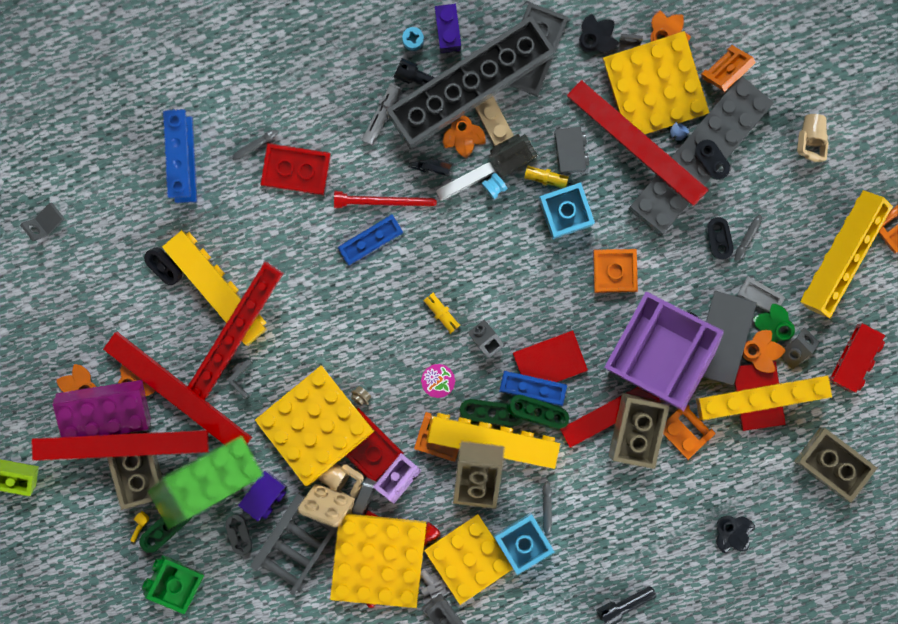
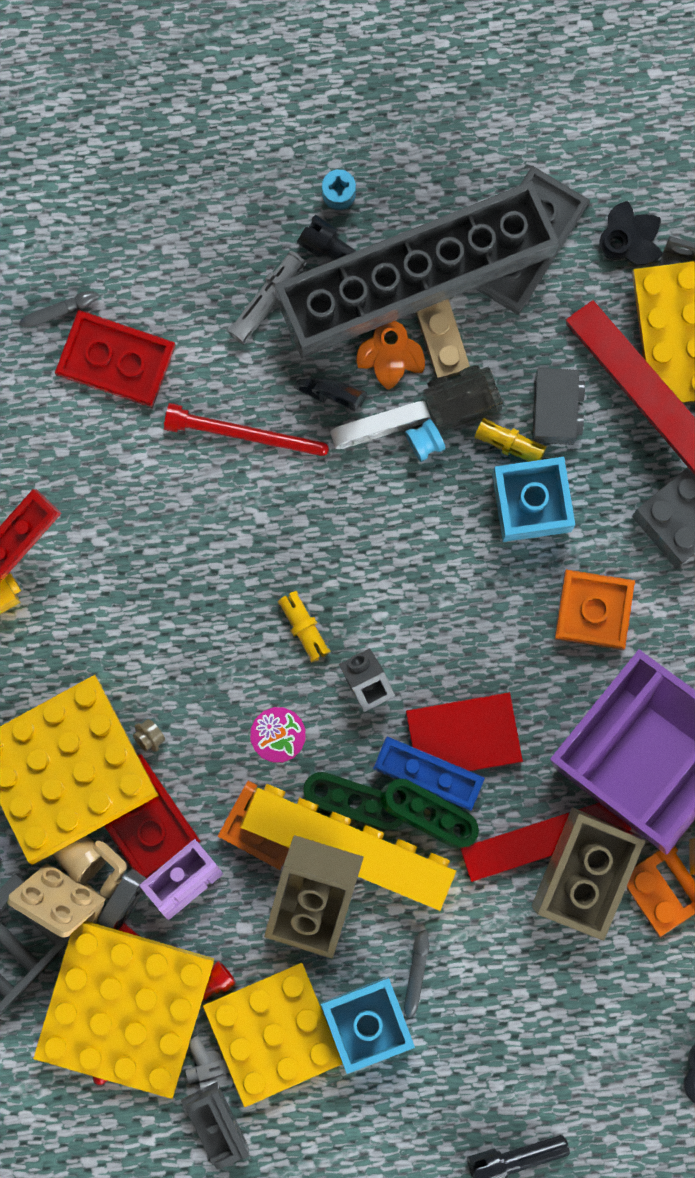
camera: 10 degrees right, 5 degrees down
(370, 239) = (212, 490): blue tile -> none
(448, 28) = (396, 182): dark purple brick -> none

